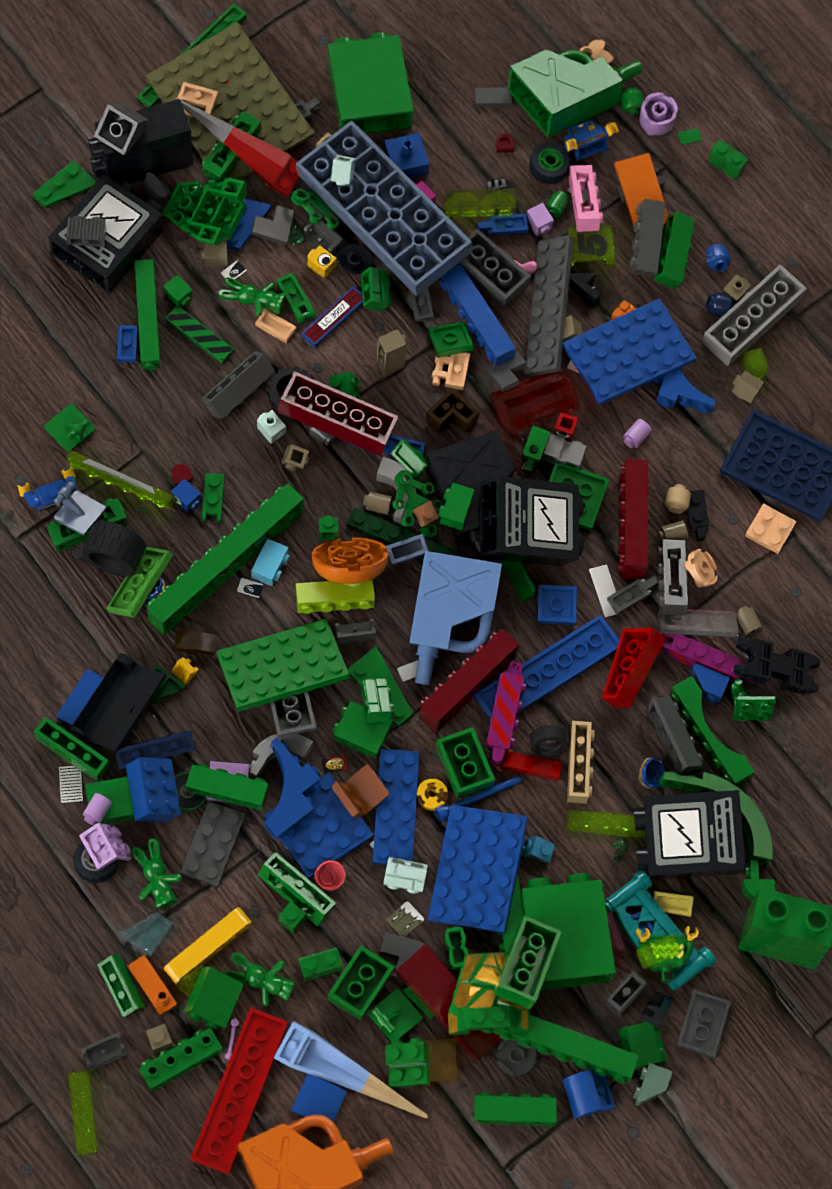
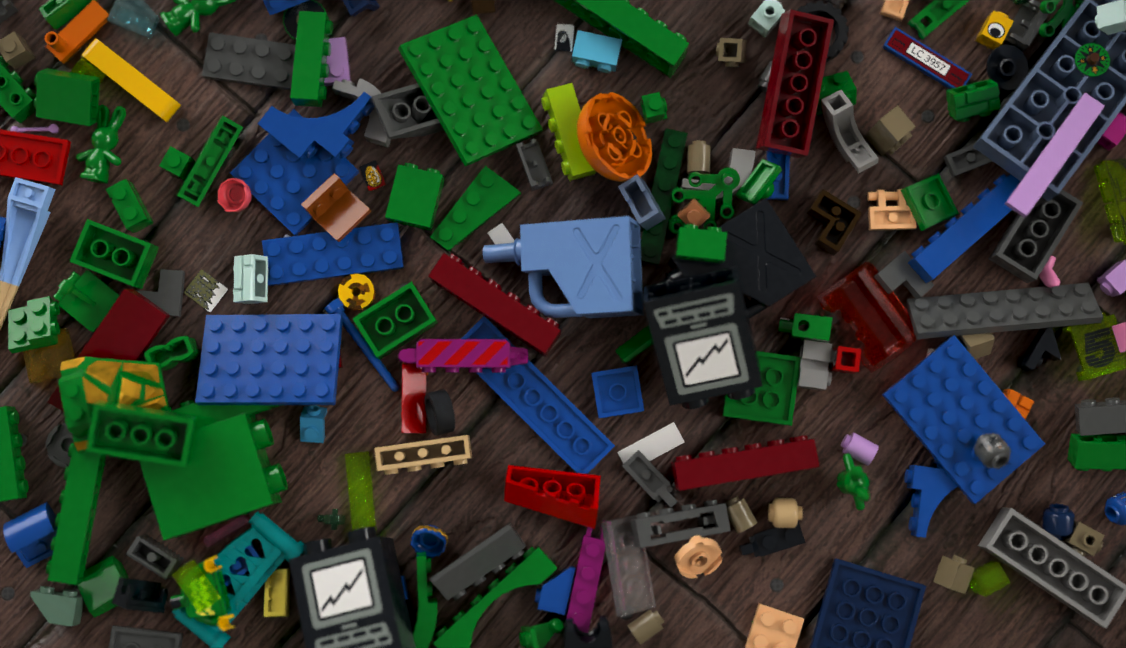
camera: 85 degrees right, 15 degrees up
(370, 194) = (1092, 59): none -> piece
(376, 700) = (444, 203): green brick -> none
(384, 388) = (842, 127): none -> light grey arch
(441, 236) = (1054, 155): none -> lavender tile
(504, 225) = (1099, 237): blue hinge -> none
(659, 333) = (992, 450): none -> dark grey head
(664, 439) = (854, 482): none -> green animal

